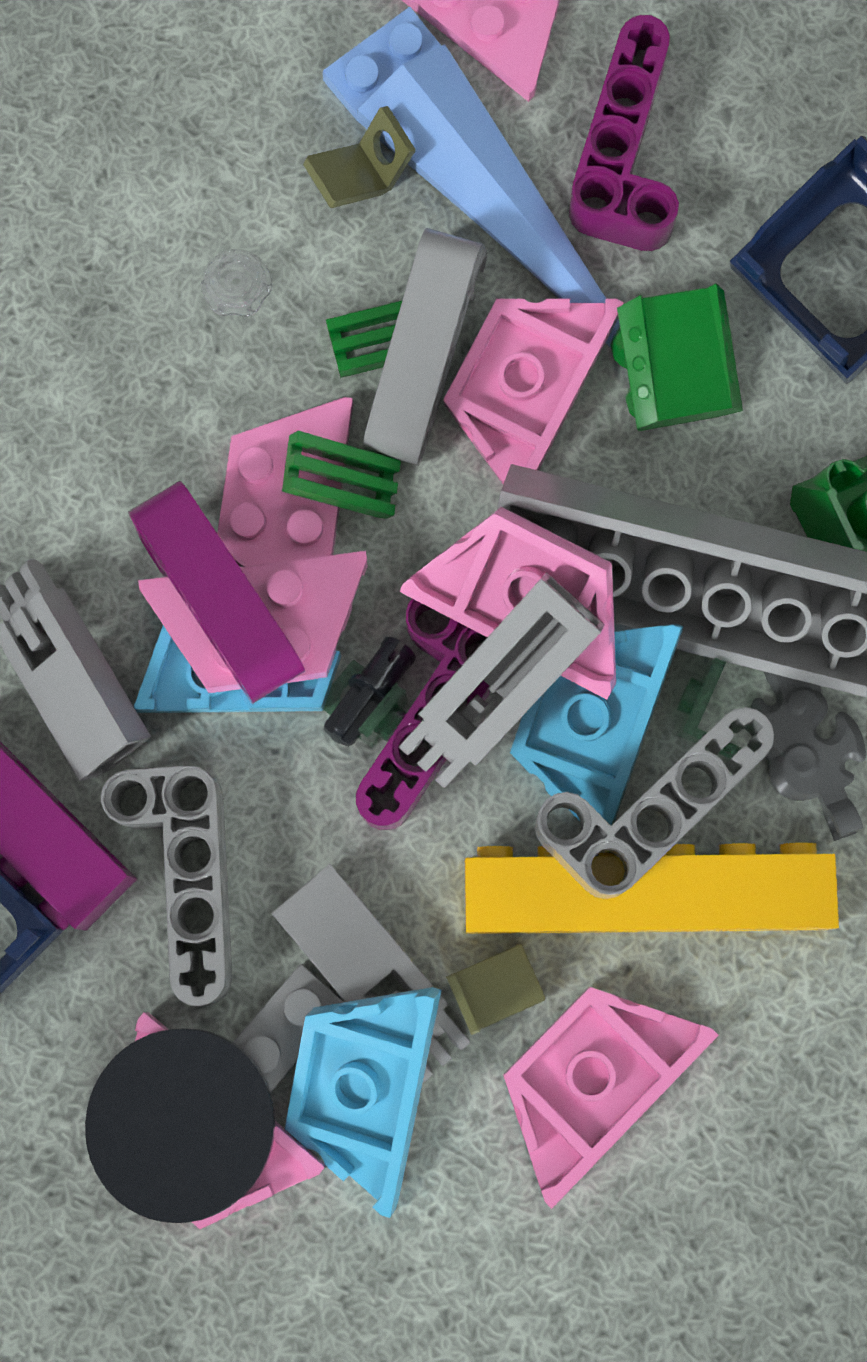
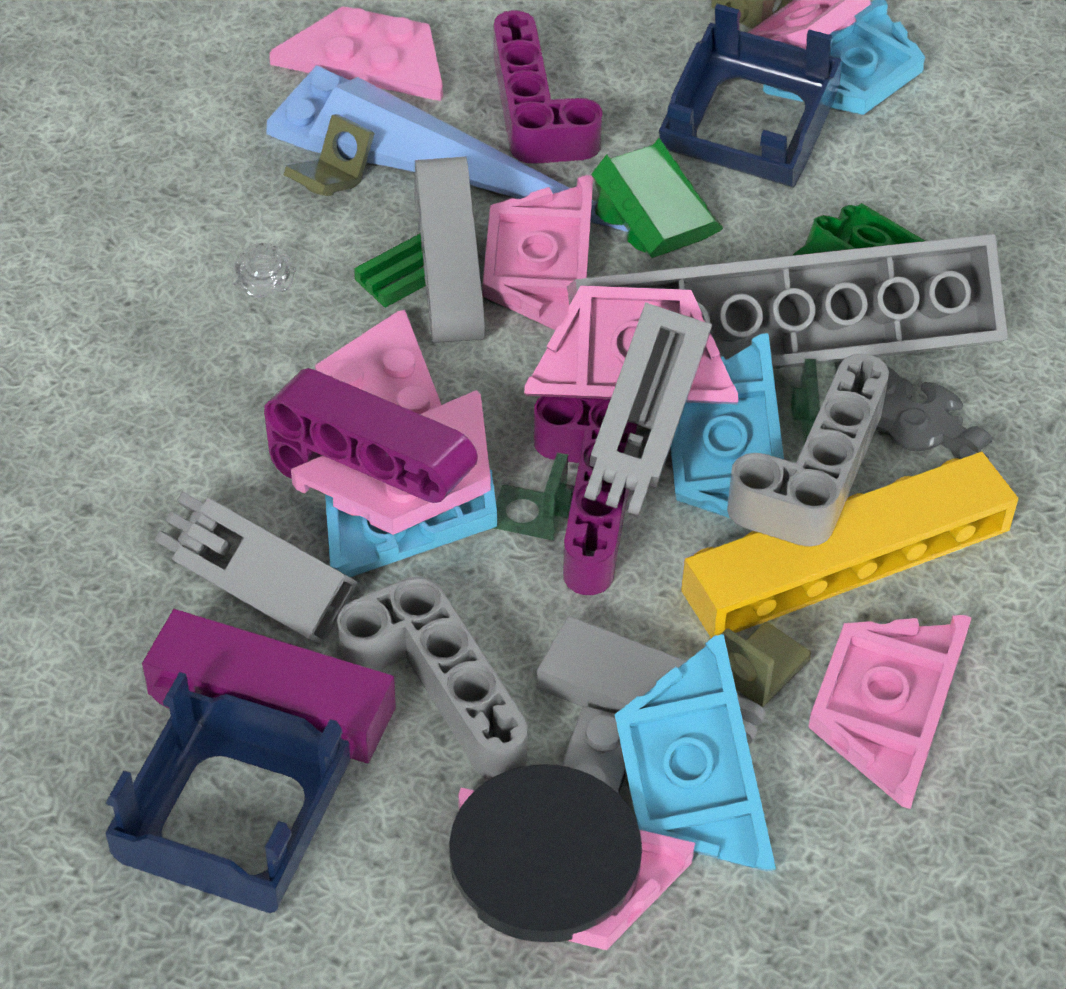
camera: 30 degrees left, 30 degrees down
(329, 449) = (426, 352): green tile -> none
(368, 691) = (529, 487): black axle -> none

